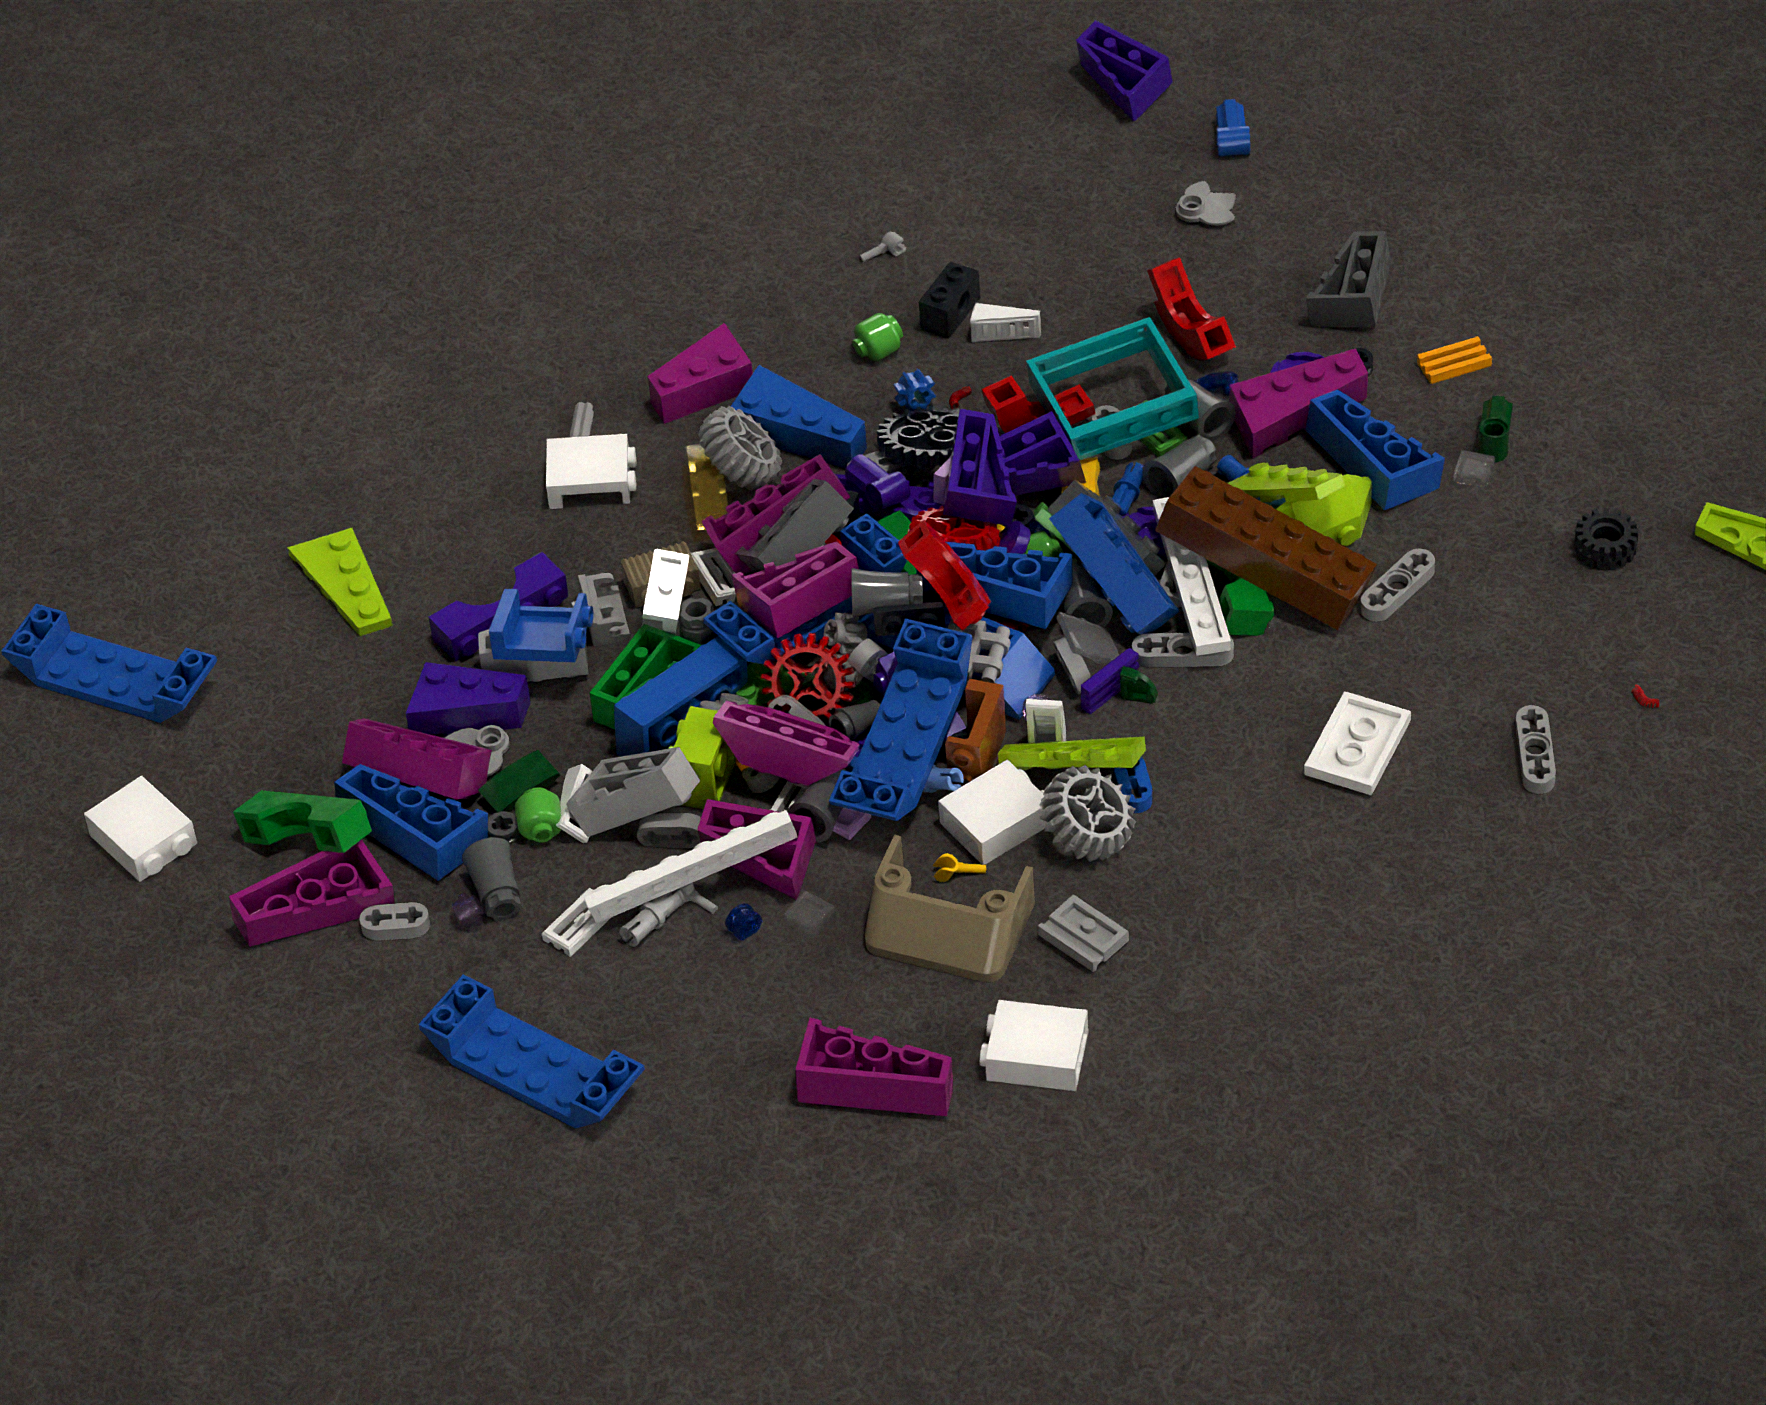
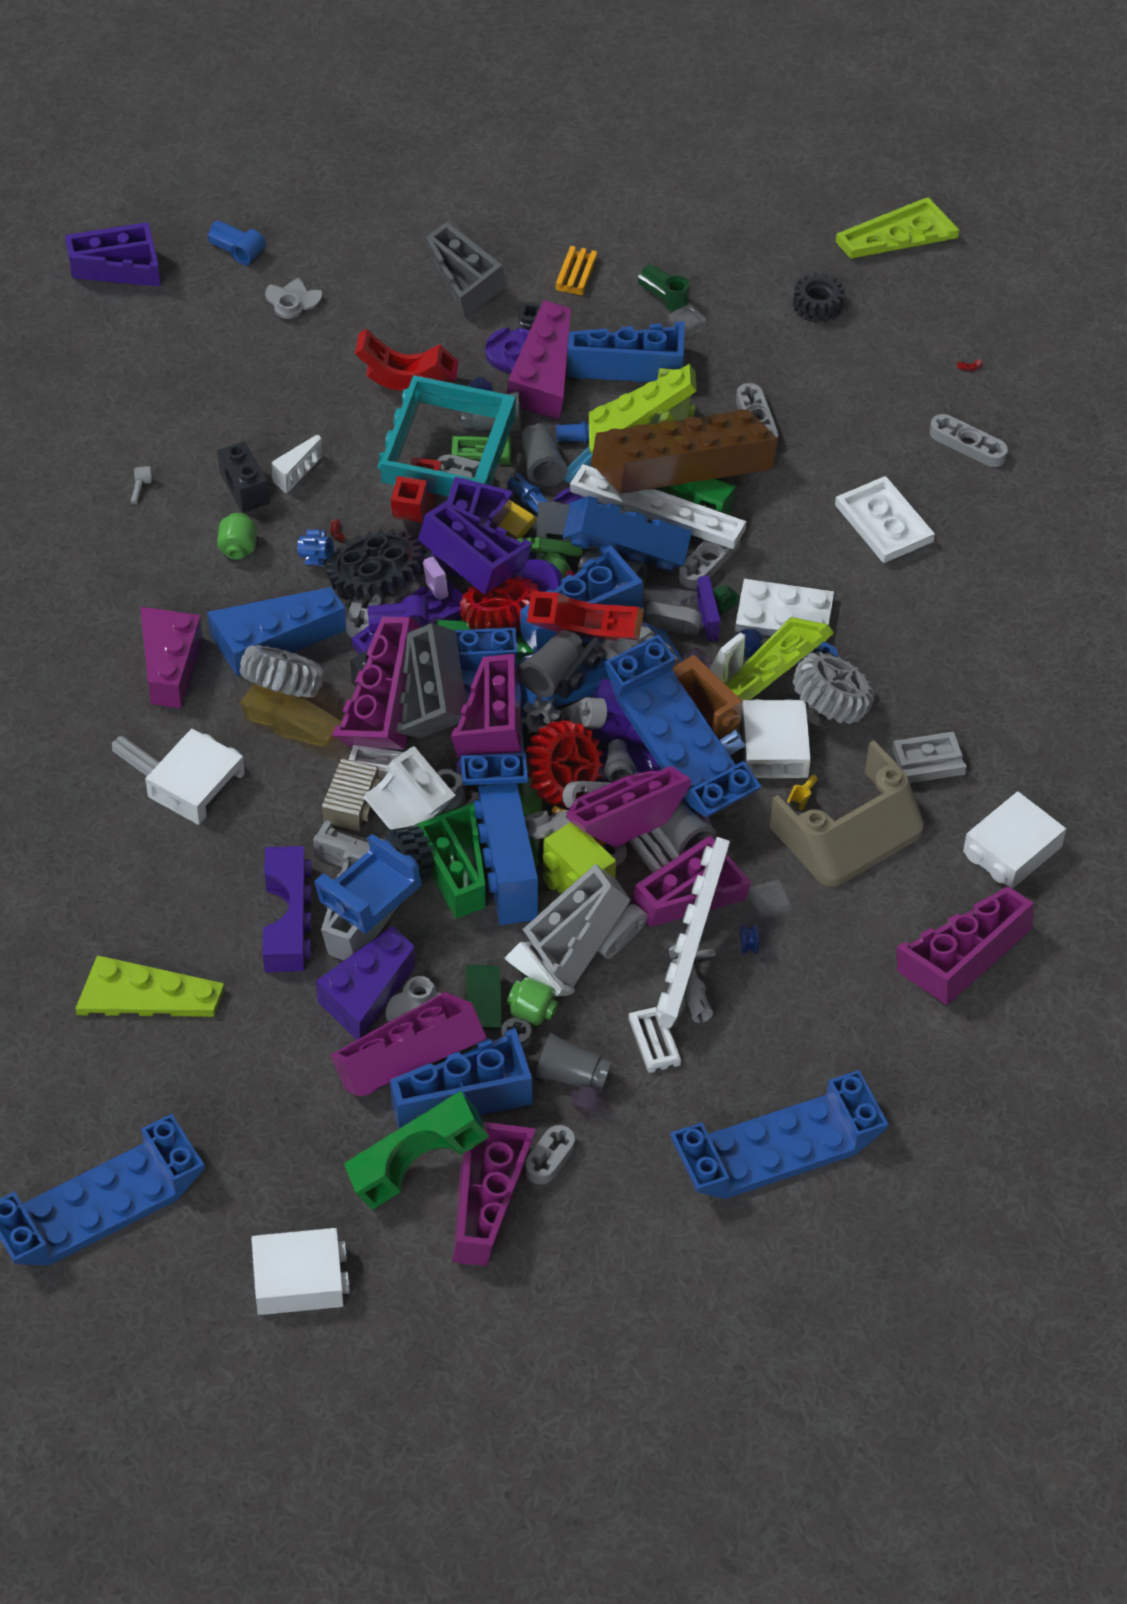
camera: 60 degrees left, 5 degrees up
(612, 640) = (412, 842): none -> black wheel
(1096, 729) = (753, 641): none -> clear blue bush
(1174, 738) = (769, 605): none -> white plate

